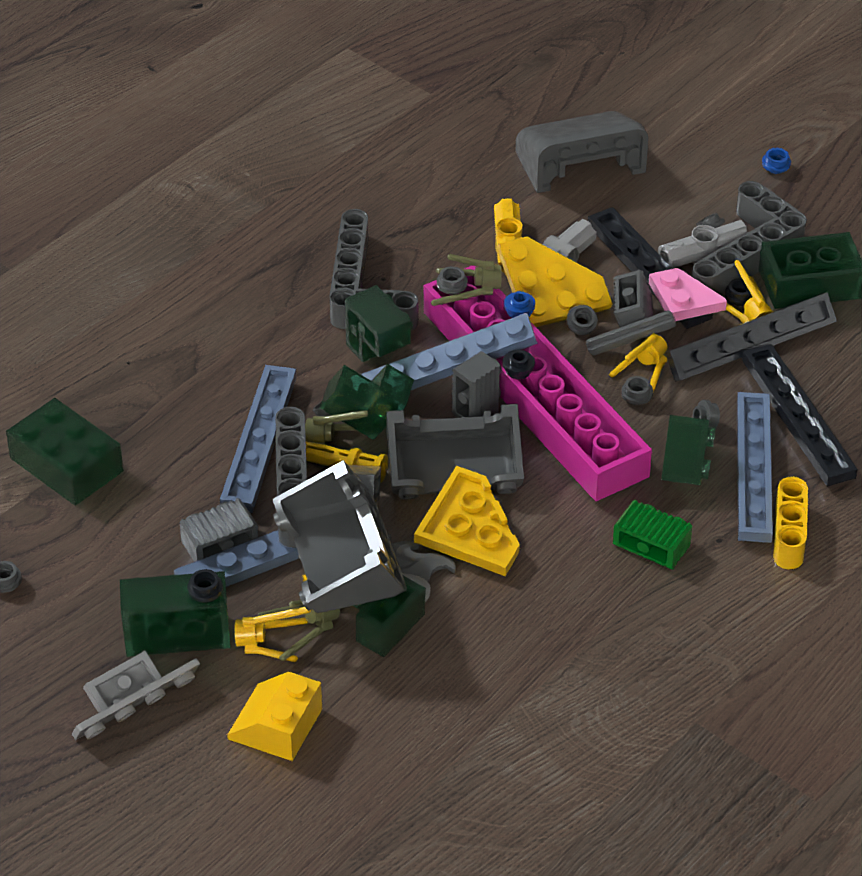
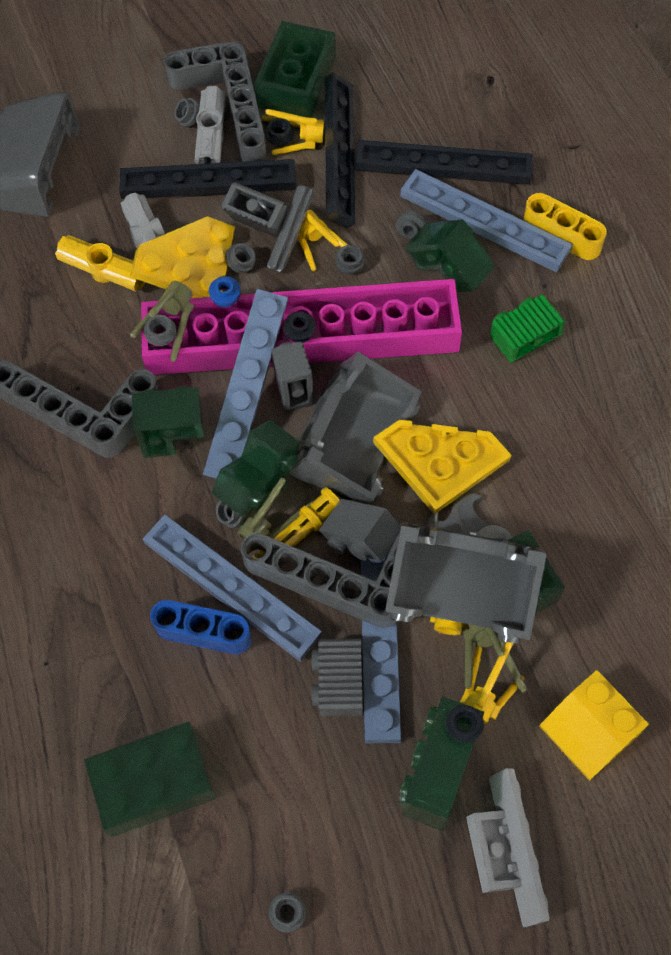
camera: 60 degrees left, 20 degrees up
(210, 431) = (189, 615): none -> blue beam
(684, 294) = (268, 170): bright pink wing -> none
(776, 160) = (139, 30): blue plate -> none

